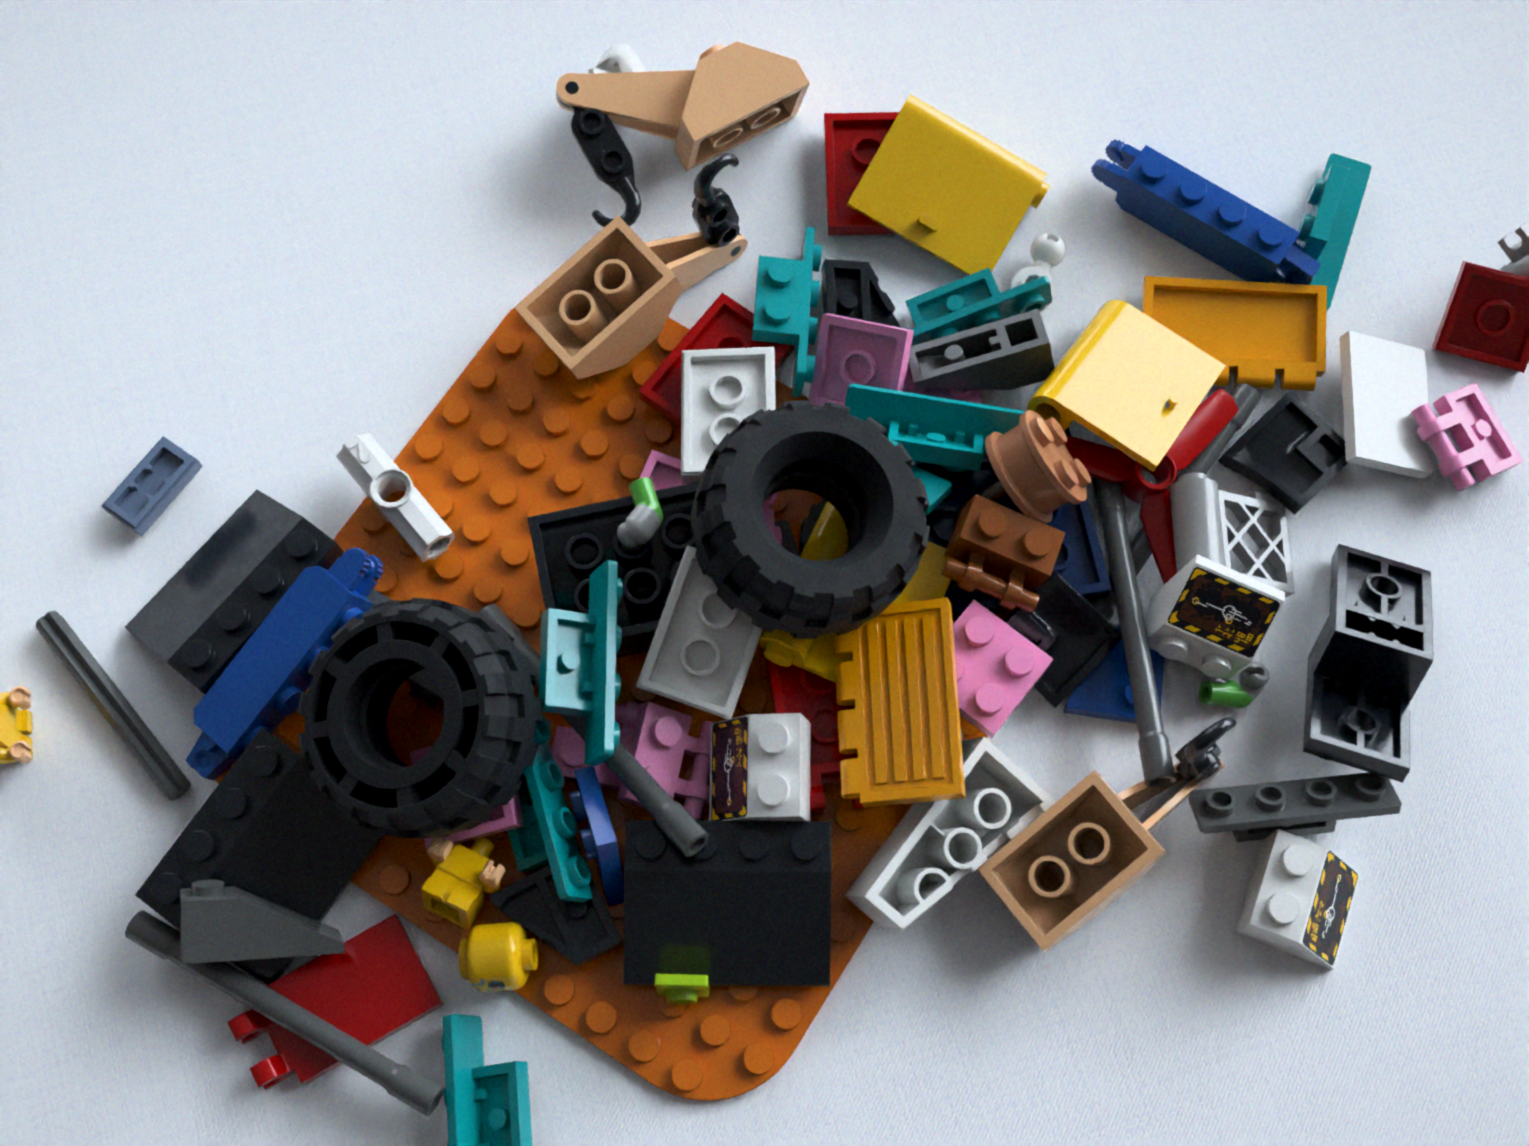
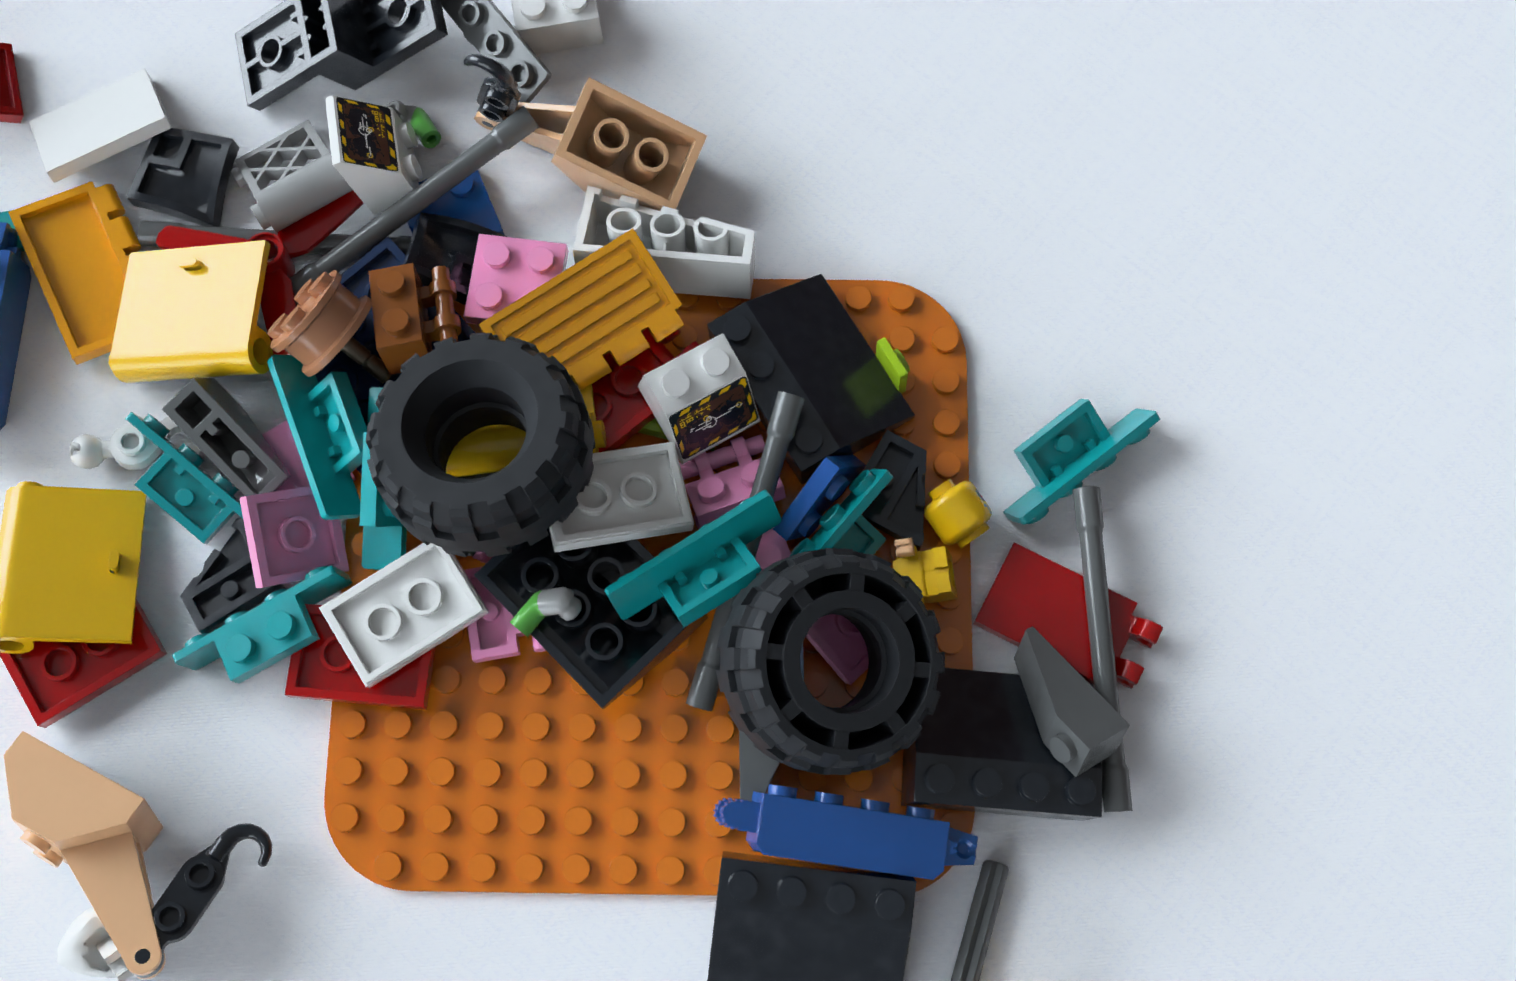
camera: 120 degrees left, 5 degrees up
(409, 516) = (632, 883): white piece -> none
(621, 290) = (334, 774): light nougat slope -> none
(1476, 432) = (91, 48): bright pink plate -> none

